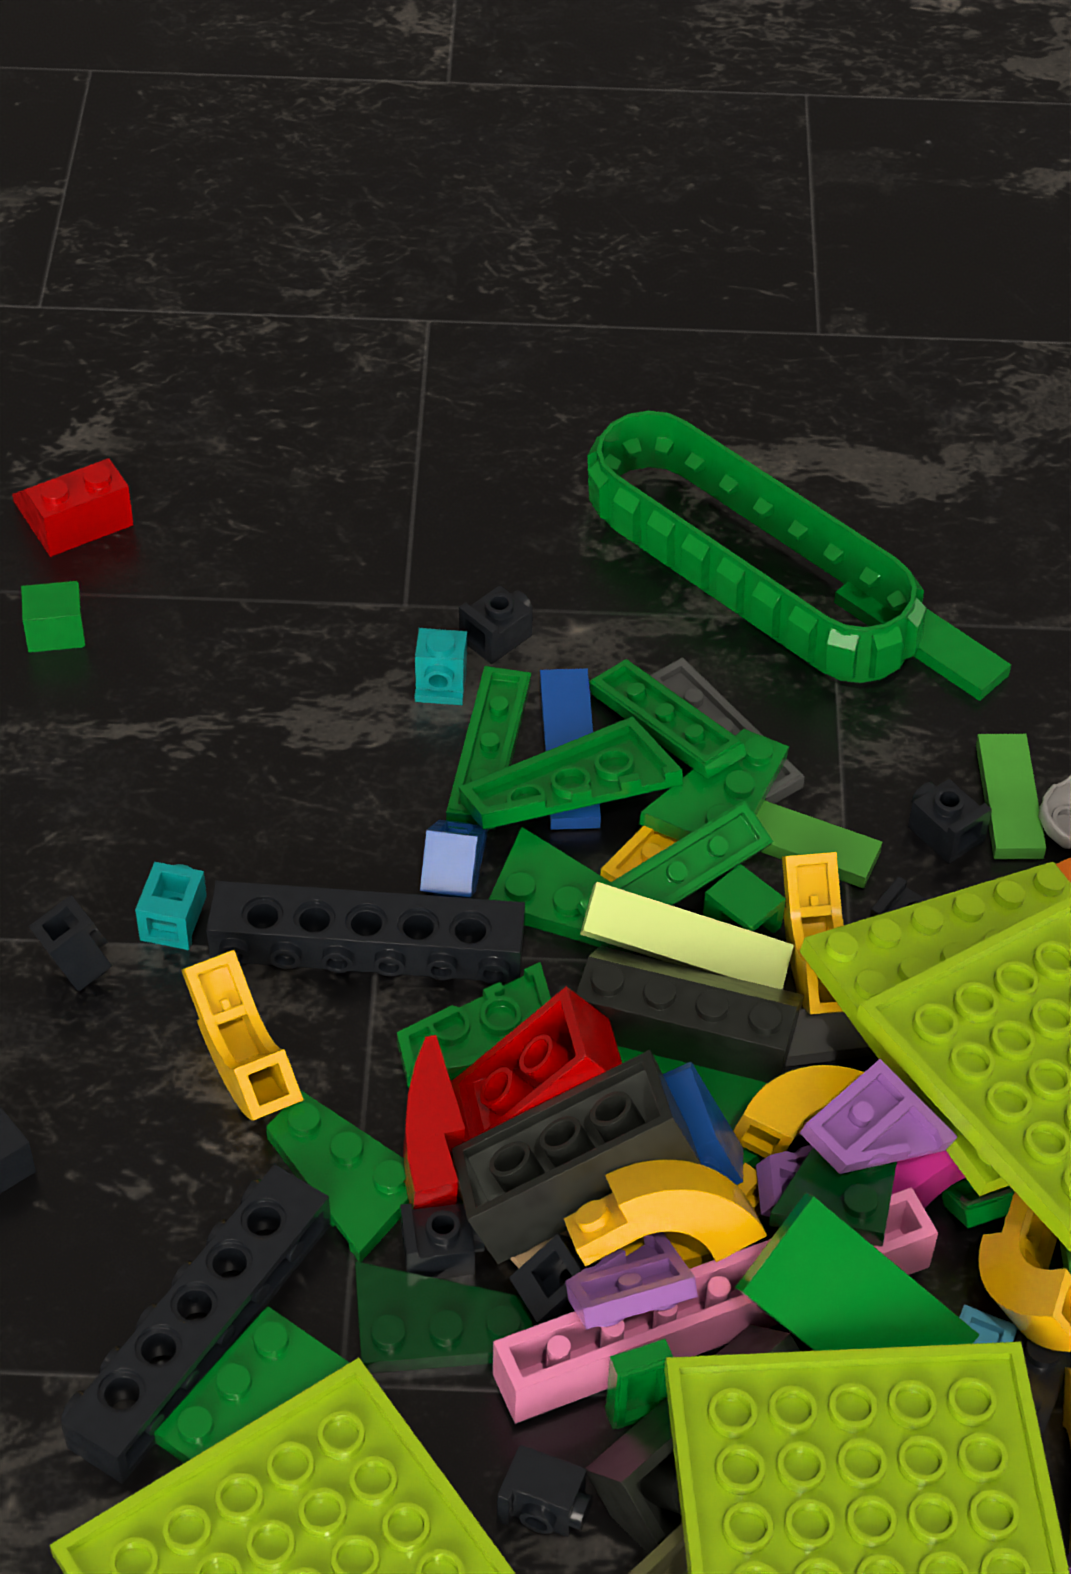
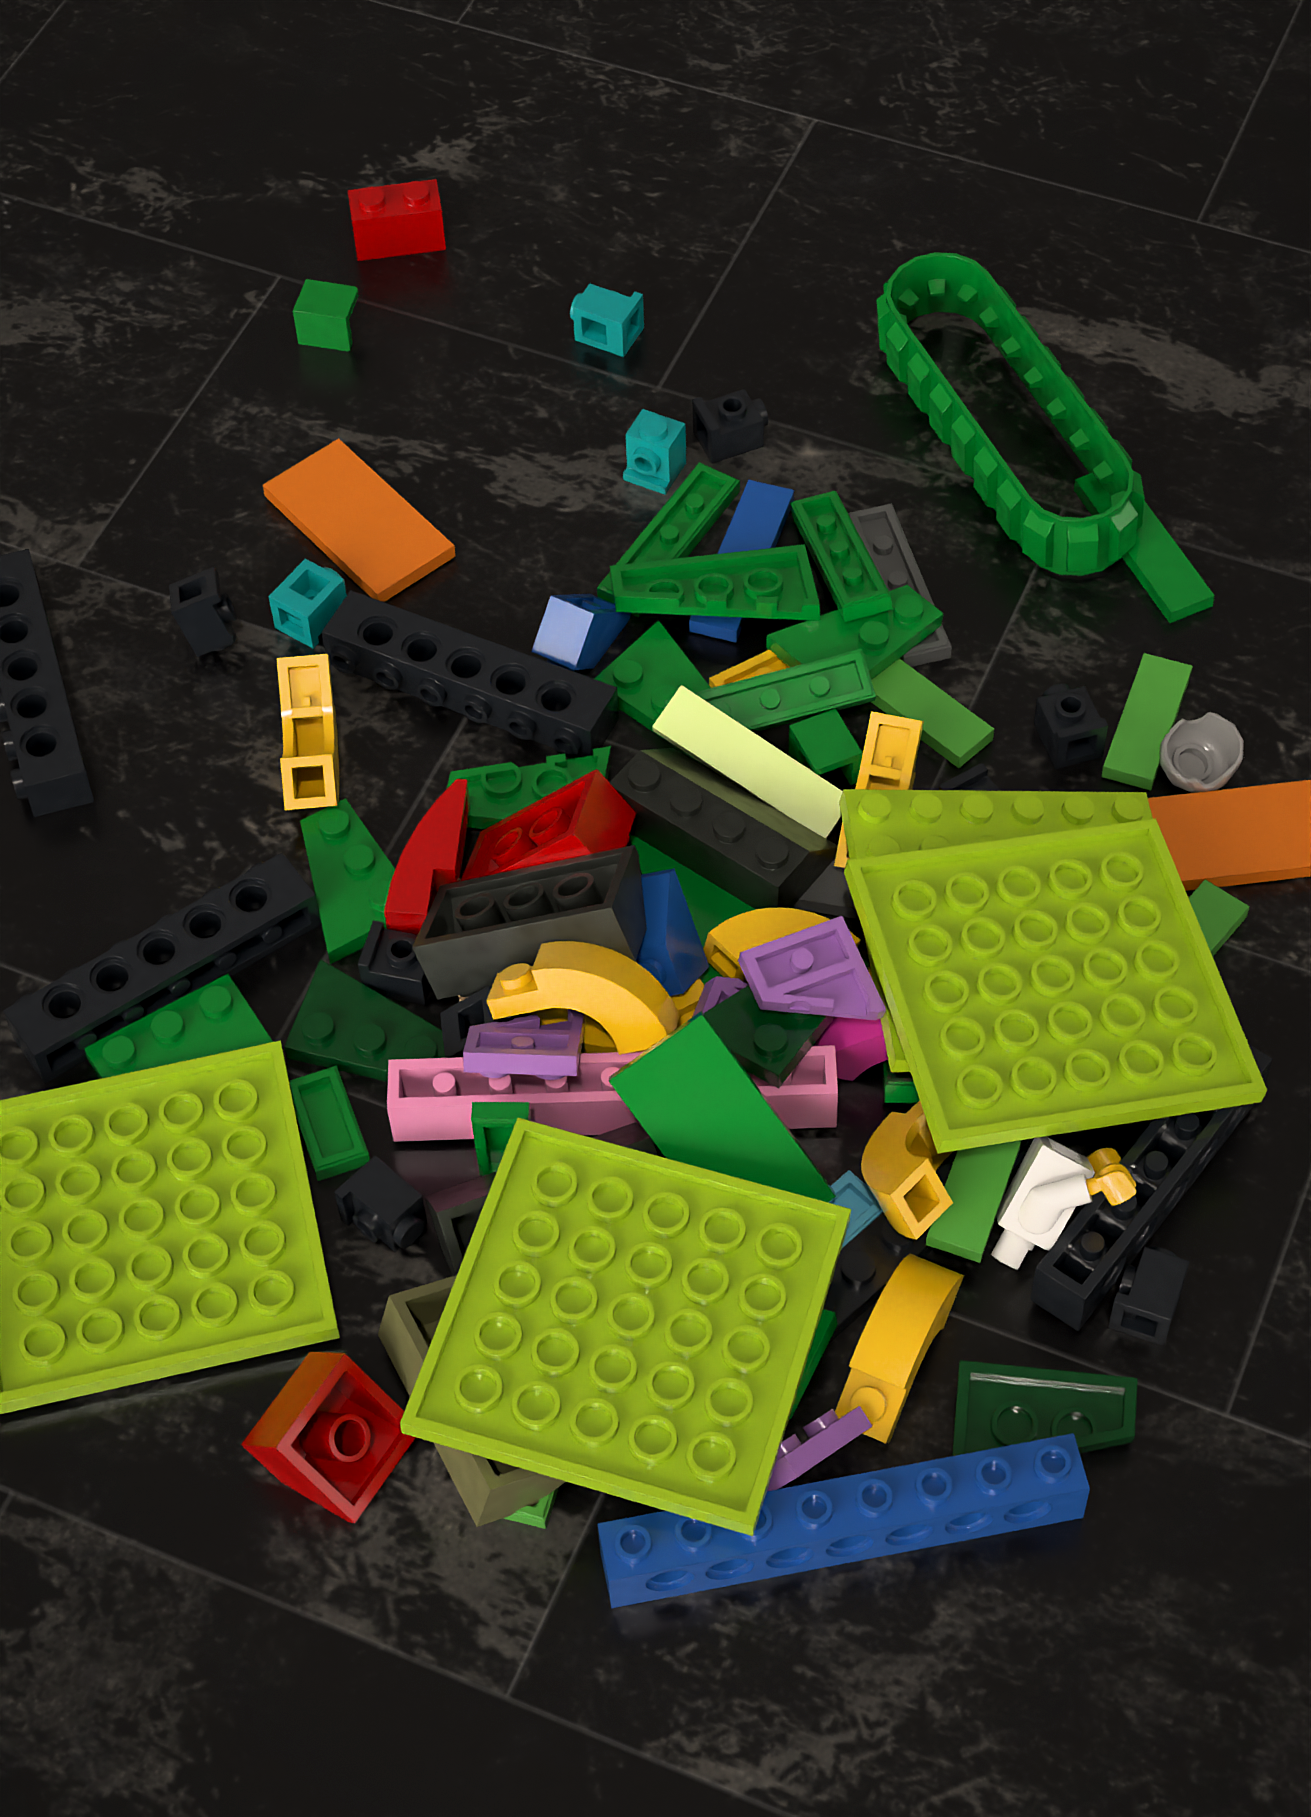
camera: 25 degrees right, 5 degrees up
(177, 810) = (359, 521): none -> orange tile
(330, 552) = (607, 319): none -> teal brick
(443, 1427) = (328, 1123): none -> green tile

